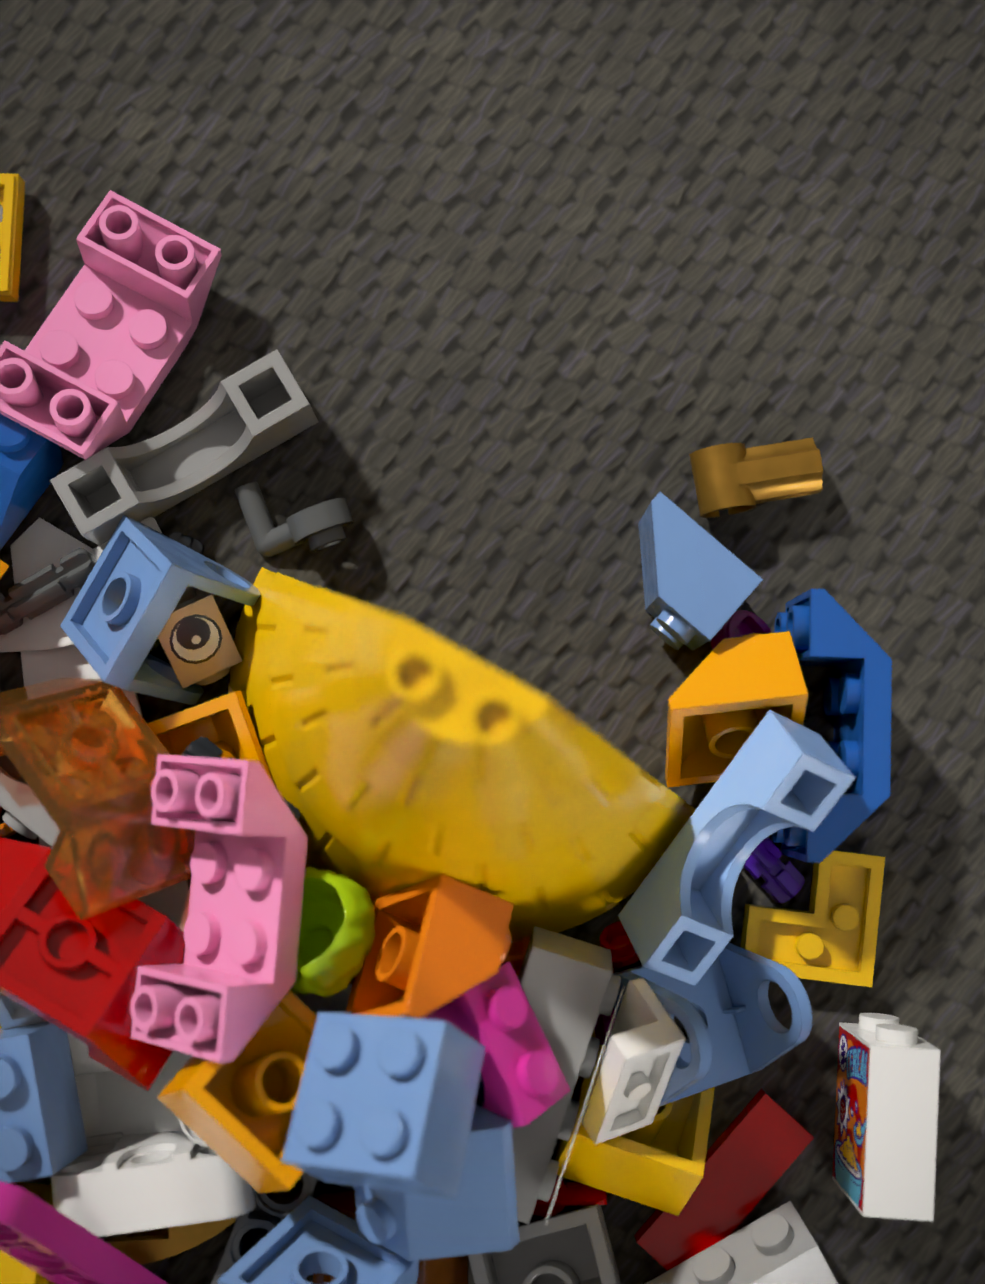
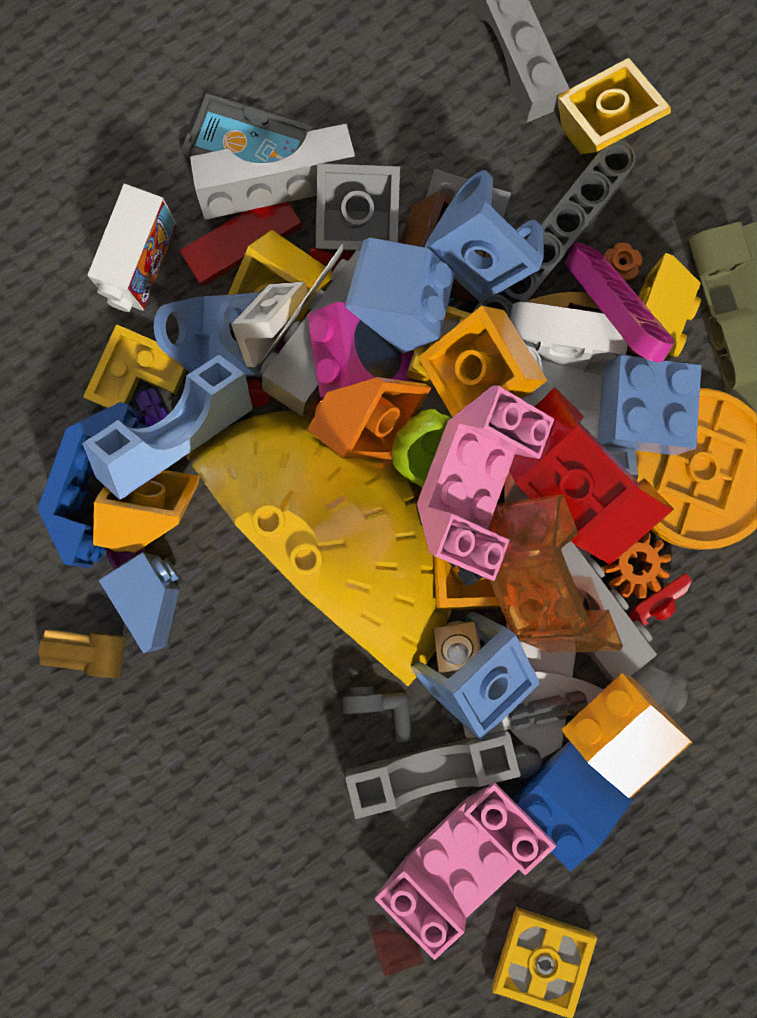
camera: 165 degrees left, 0 degrees up
(50, 511) = (528, 761): none -> dark grey hinge
(174, 191) = (395, 951): none -> clear red tile
(385, 1103) = (411, 336): medium blue brick -> none

